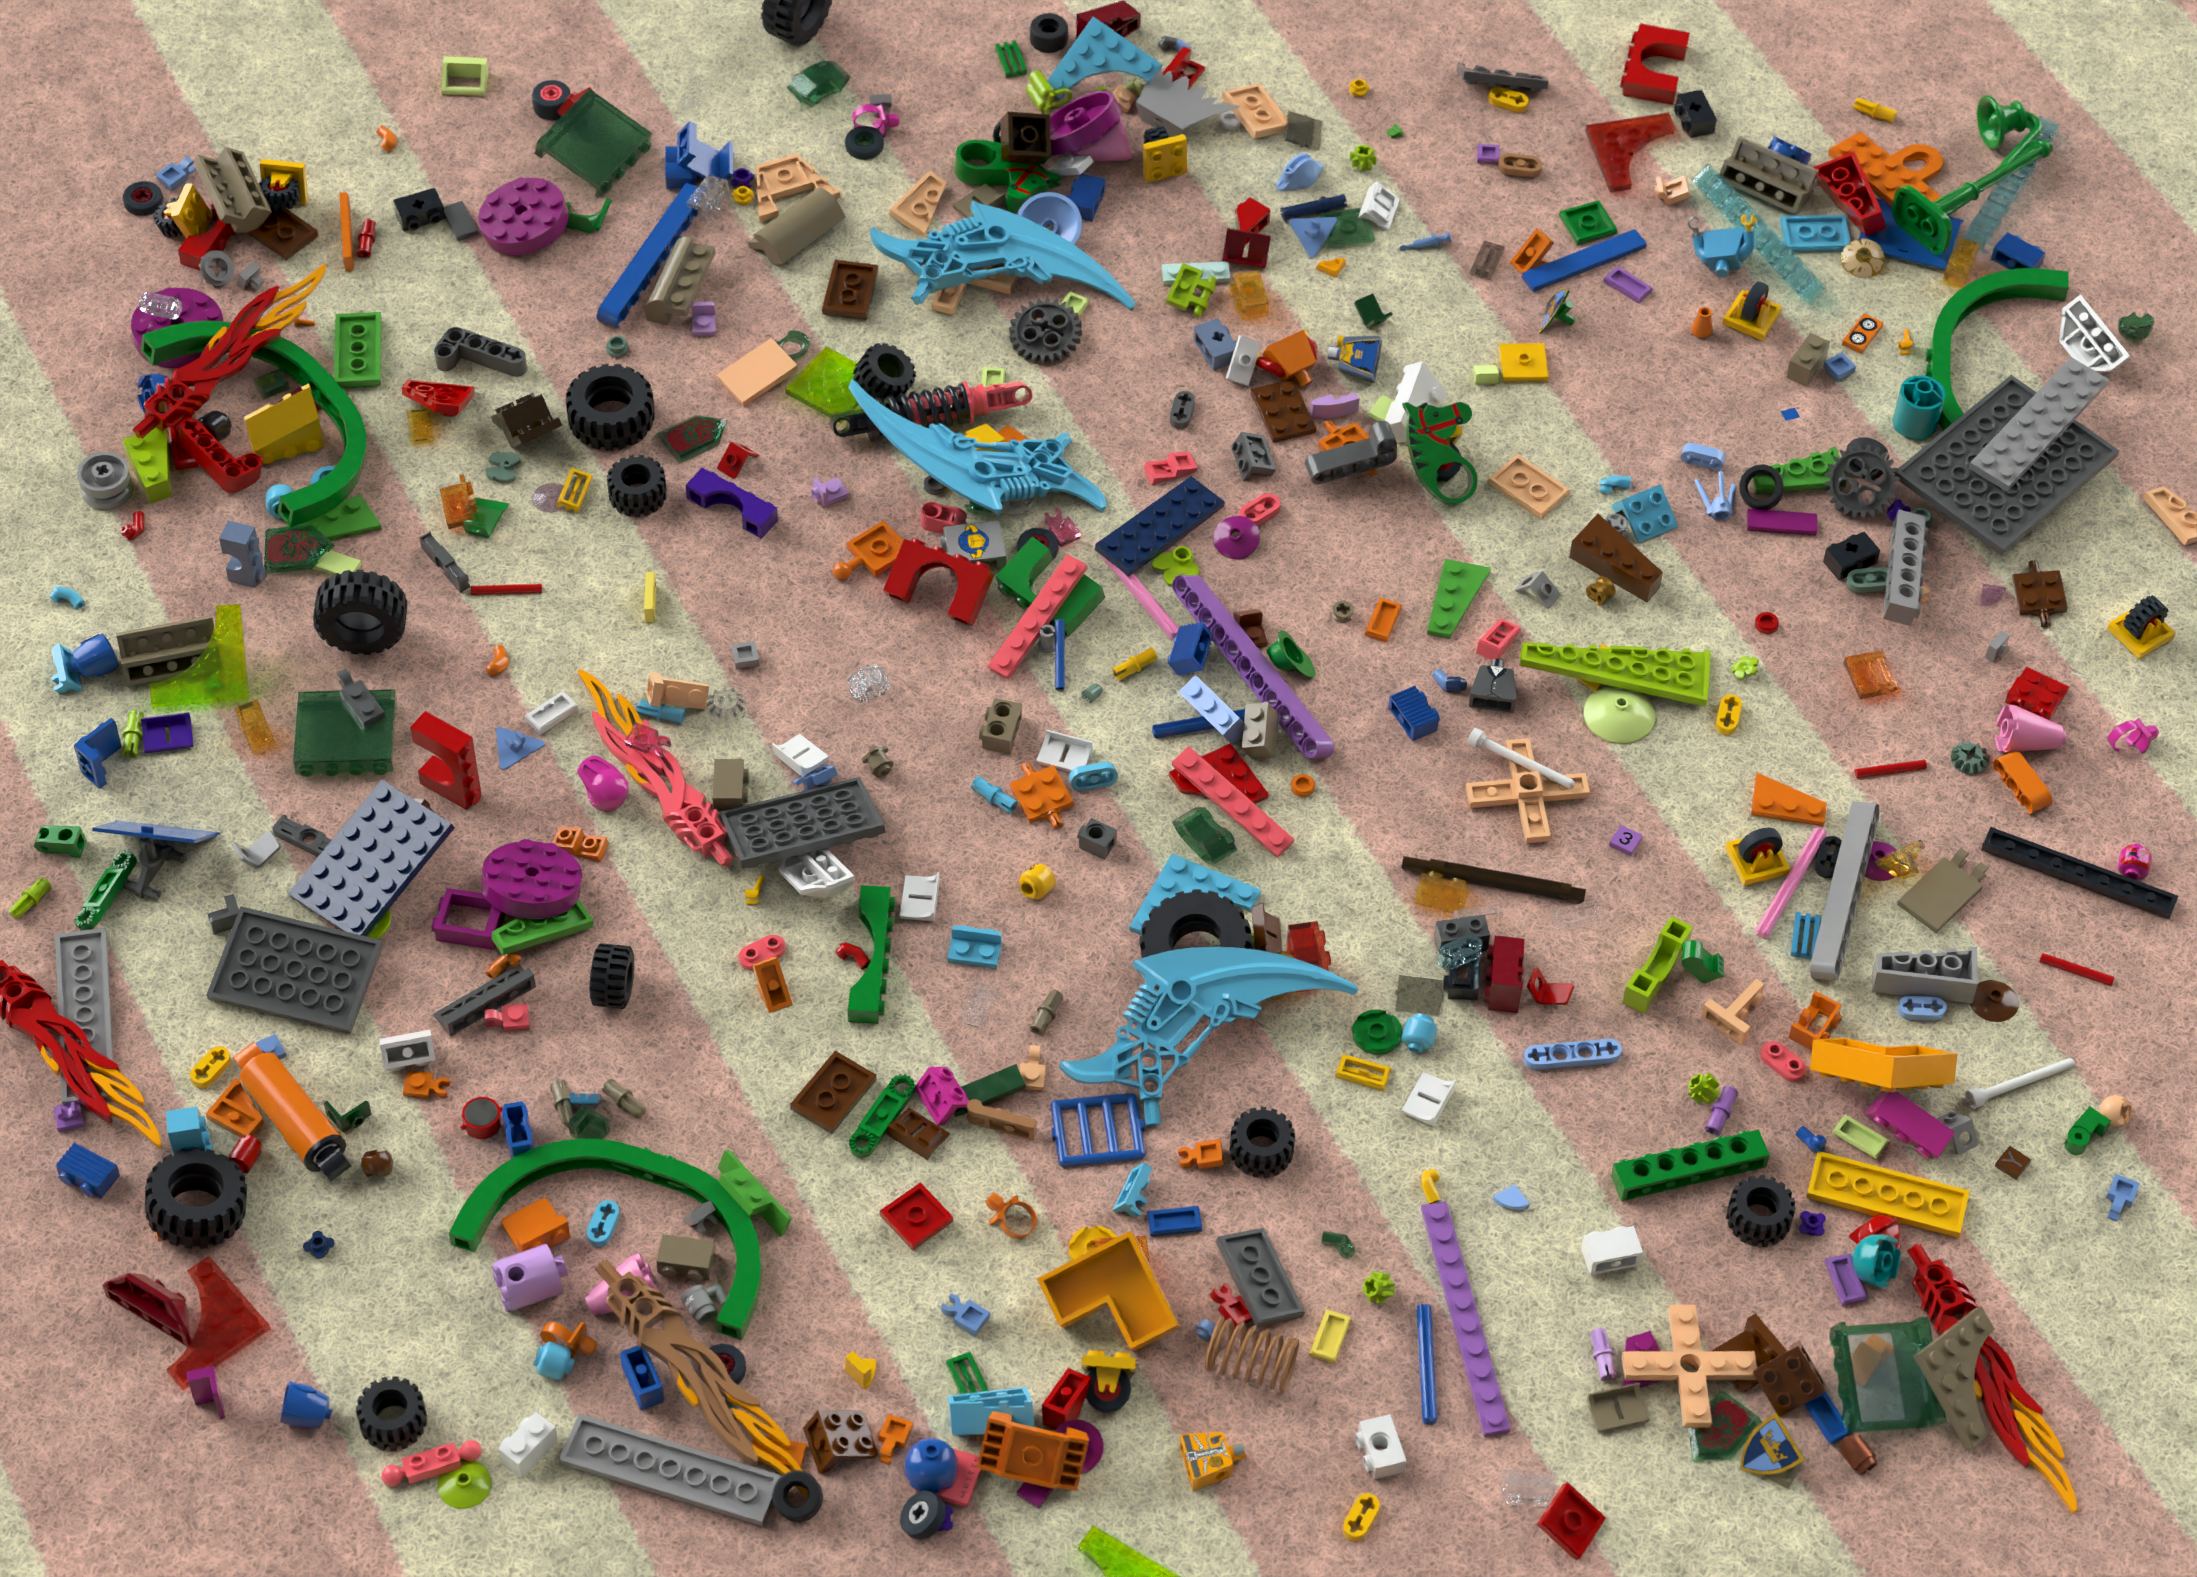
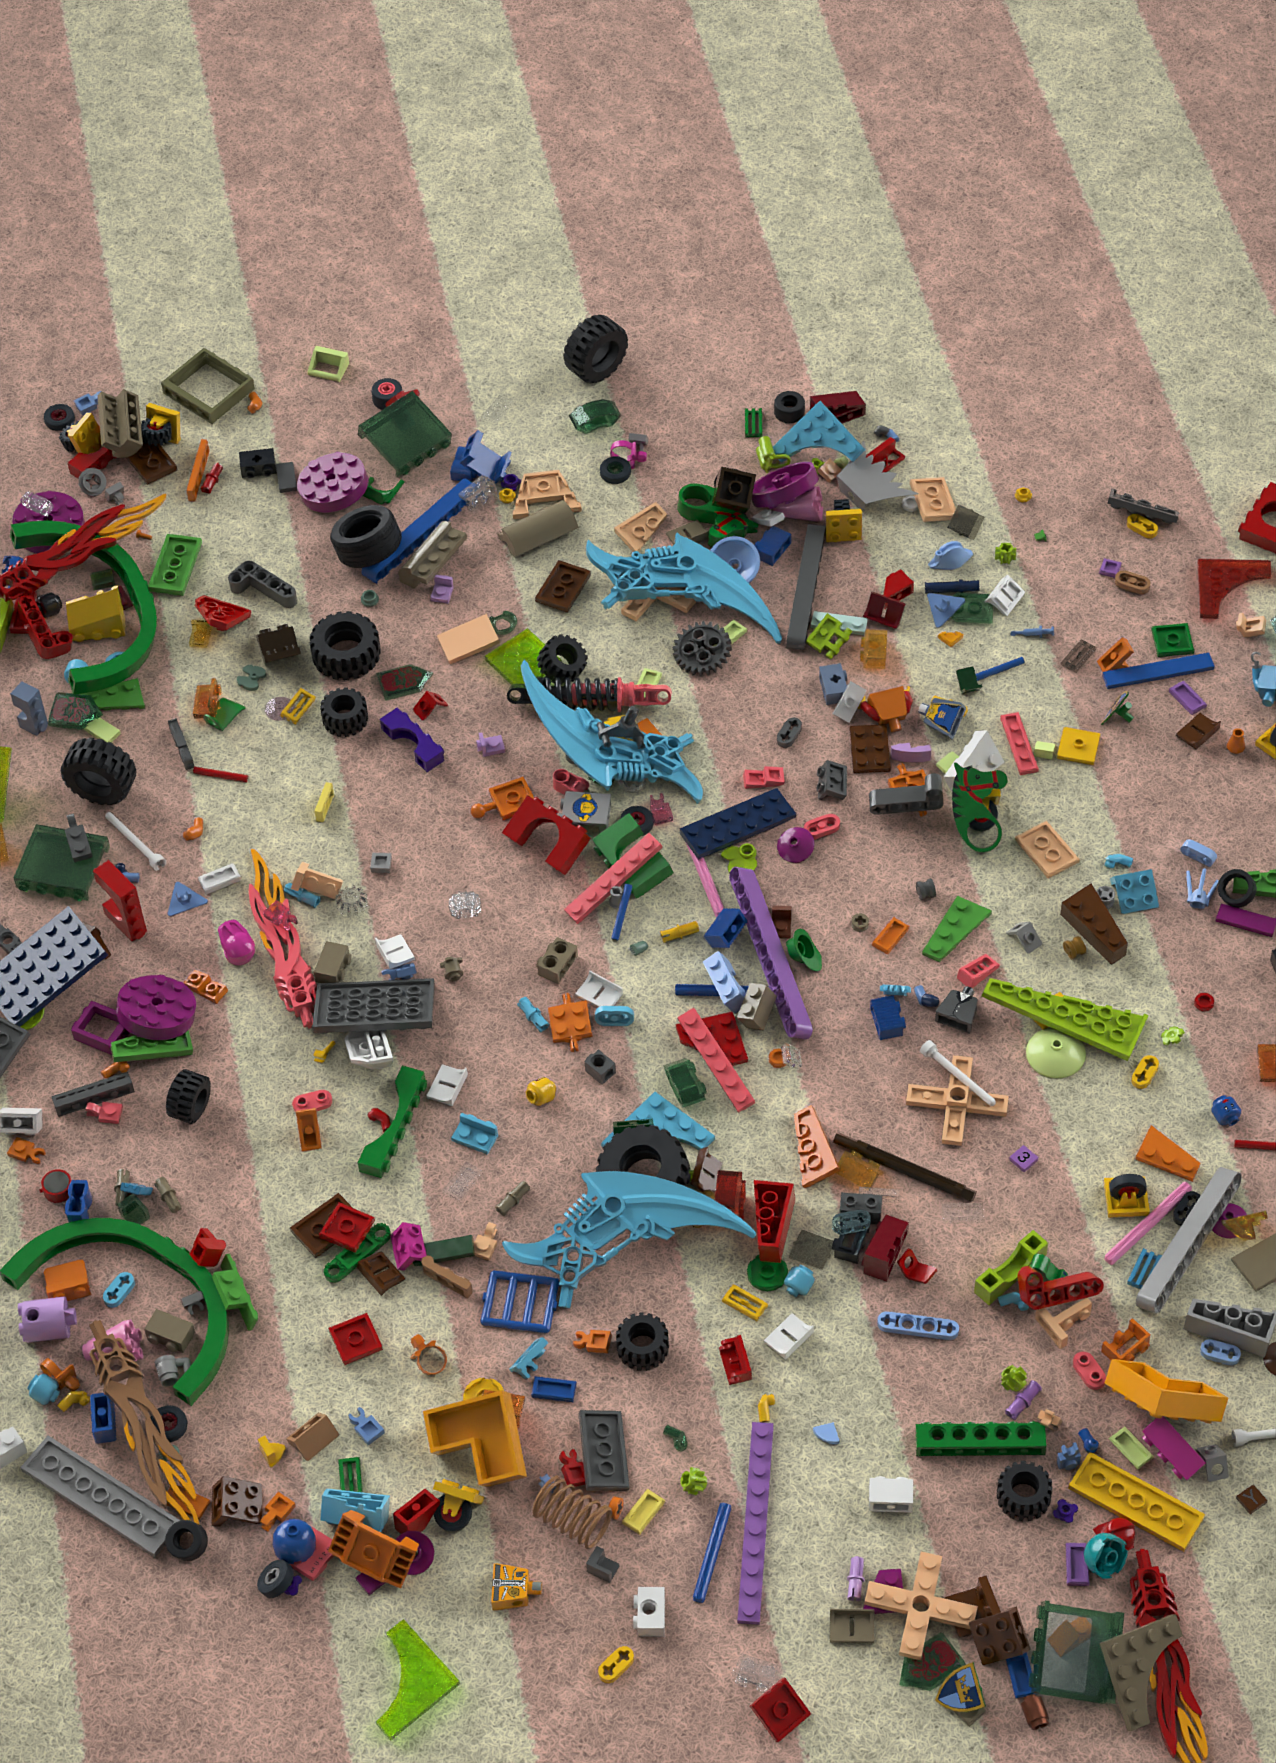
camera: 20 degrees right, 0 degrees up
(278, 141) = (171, 383): none -> olive window
(461, 706) = (154, 859): none -> white piece
(592, 272) = (365, 536): none -> black tyre
(595, 1362) = (74, 1397): none -> yellow arm
(698, 1150) = (207, 1249): none -> red brick
(861, 1088) = (347, 1227): none -> red tile
(905, 1339) = (313, 1436): none -> medium nougat panel
(998, 437) = (624, 728): none -> dark grey axle
(1143, 238) = (806, 587): none -> dark grey beam
(1153, 900) = (619, 1126): none -> dark green plate
(1297, 1331) = (616, 1505): none -> orange tile
(1304, 1410) = (601, 1566): none -> dark grey panel
(1318, 779) = (791, 1056): none -> clear tile
(1363, 964) = (773, 1215): none -> red wedge
(1377, 1139) = (735, 1360): none -> red hinge
(1385, 883) = (814, 1149): none -> wing
(1402, 290) = (1000, 668): none -> blue piece
(1407, 558) = (926, 889): none -> dark grey wheel
(1413, 679) = (895, 989): none -> medium azure gear
(1454, 372) = (1019, 743): none -> coral tile
(1657, 312) = (1202, 724): none -> reddish brown piece
(1674, 999) = (1013, 1297): none -> medium azure arm
(1706, 985) = (1085, 1286): none -> red beam
(1760, 1124) = (1049, 1420): none -> light nougat plate
(1798, 1163) = (1069, 1457): none -> medium blue plate
(1836, 738) = (1226, 1110): none -> blue head

